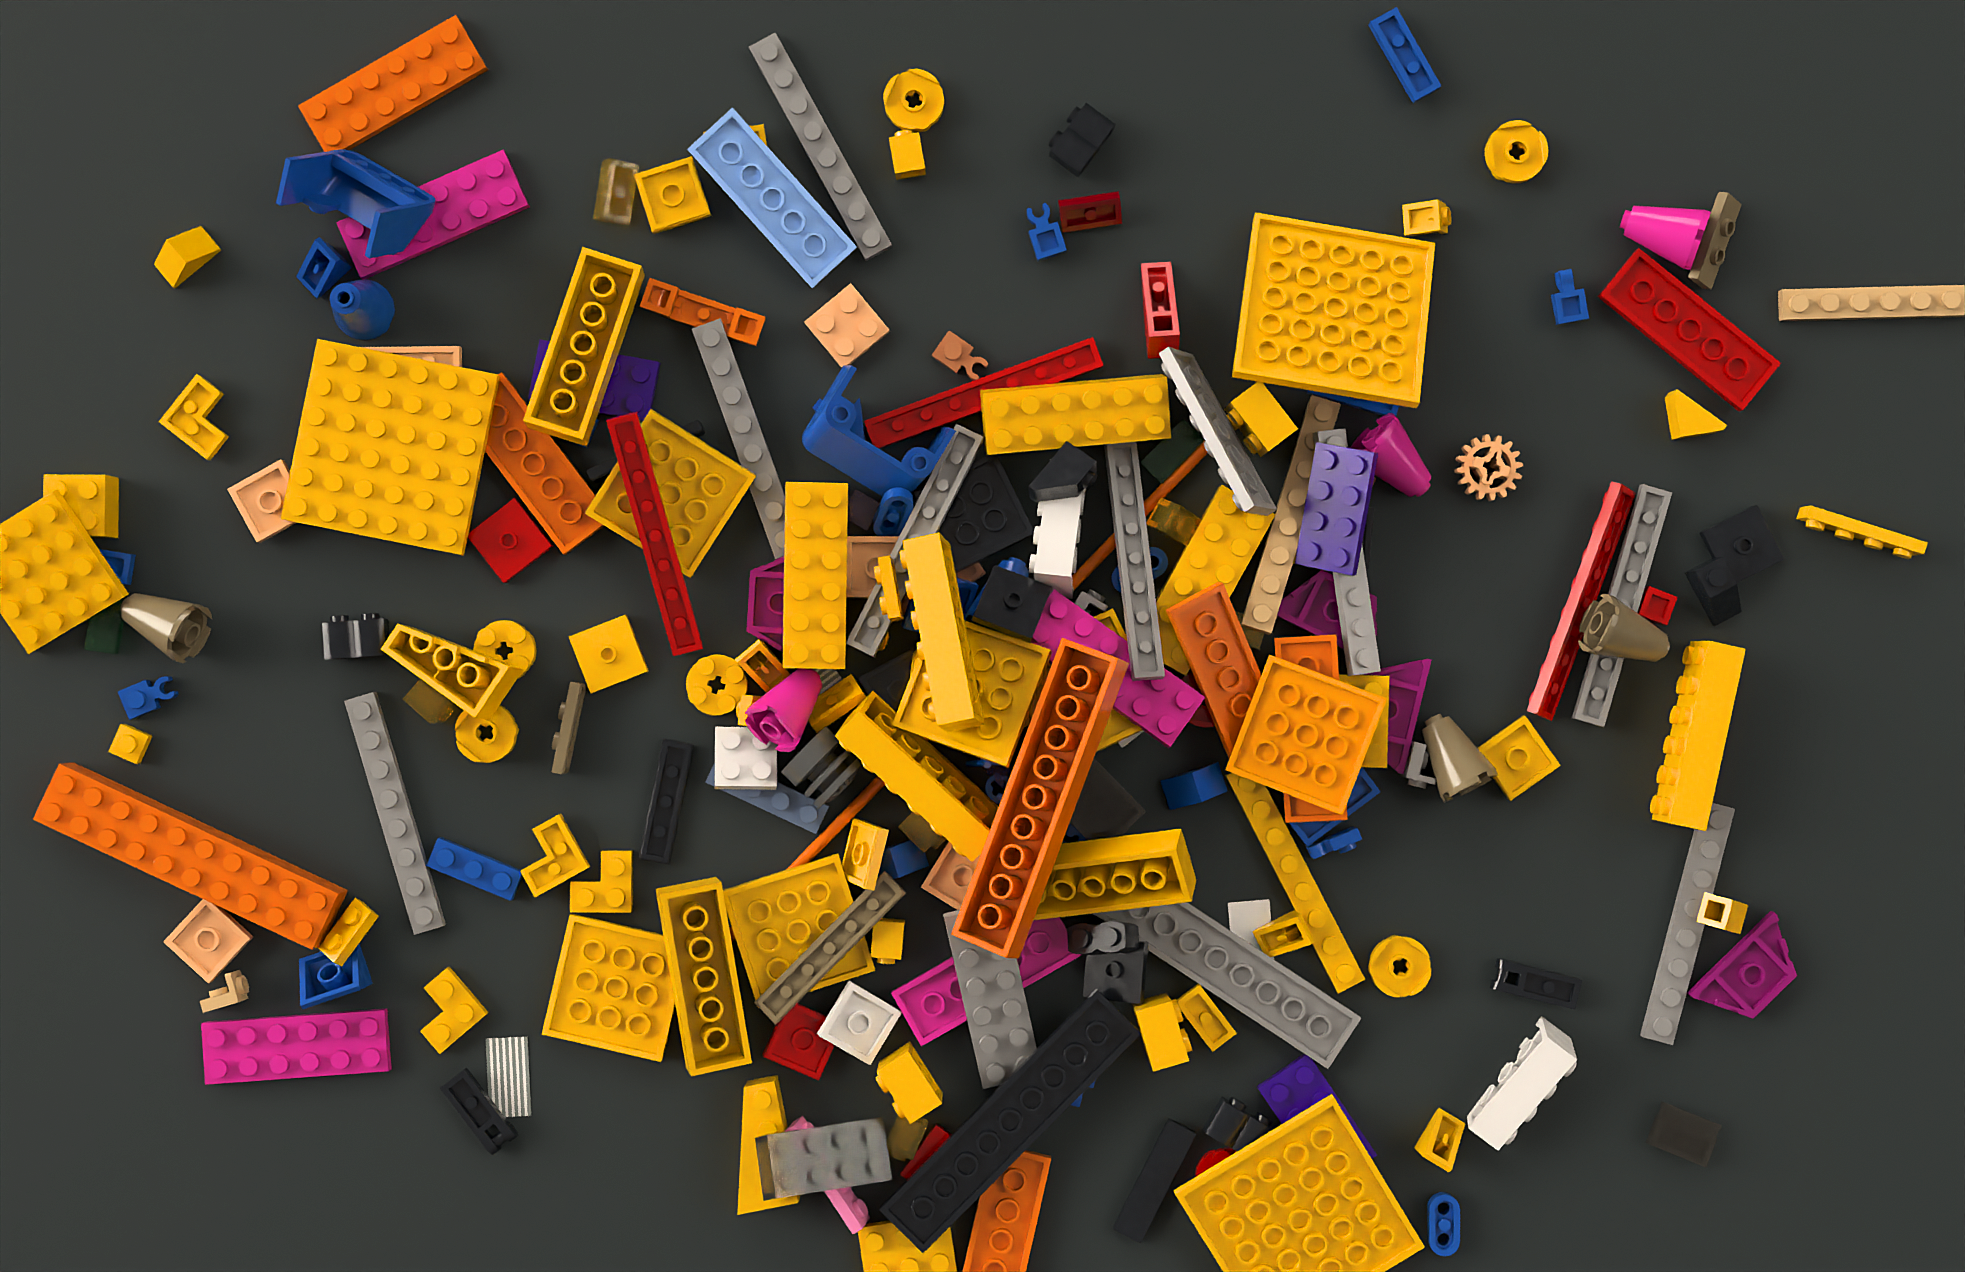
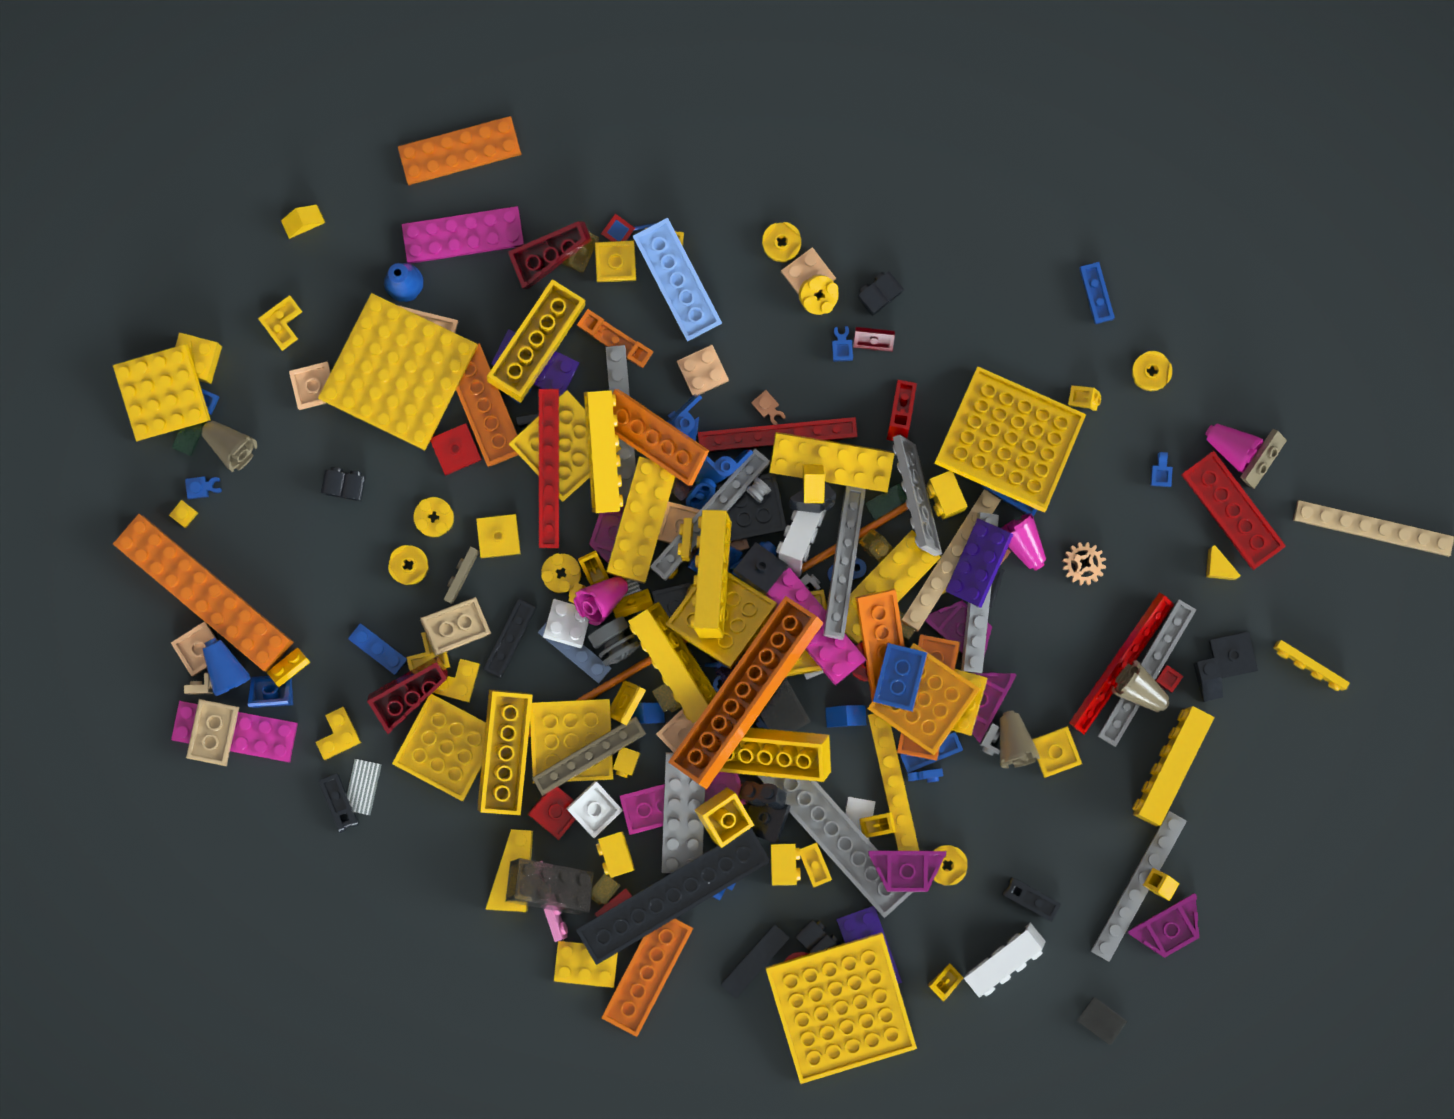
camera: 20 degrees right, 5 degrees down
(250, 960) = (223, 667): none -> blue cone
(262, 1059) = (212, 732): none -> tan tile
(322, 268) = (384, 250): blue slope -> none
(360, 190) = (424, 210): blue windscreen -> none
(395, 813) = (337, 601): light grey plate -> none
(429, 702) = (379, 535): clear yellow brick -> none
(460, 674) = (403, 522): yellow wedge -> none
(532, 927) = (406, 693): none -> dark red wedge
(565, 209) = (546, 253): none -> dark red wedge
(580, 805) = (455, 626): none -> tan tile
(667, 145) = (620, 230): none -> piece
(728, 490) = (602, 451): none -> yellow brick
(799, 447) = (658, 439): none -> orange plate
(820, 146) = (716, 255): light grey plate -> none
(907, 154) = (768, 274): yellow brick -> none
(966, 140) = (804, 268): none -> light nougat plate
(977, 484) = (758, 489): none -> light grey wheel
(1003, 176) = (823, 304): none -> yellow plate
(1055, 987) = (724, 817): none -> yellow brick
(1059, 455) = (813, 483): none -> yellow slope
(1263, 712) = (900, 677): none -> blue plate
(1344, 990) = (907, 869): none -> magenta wing
(1443, 1222) = (933, 1037): blue plate -> none

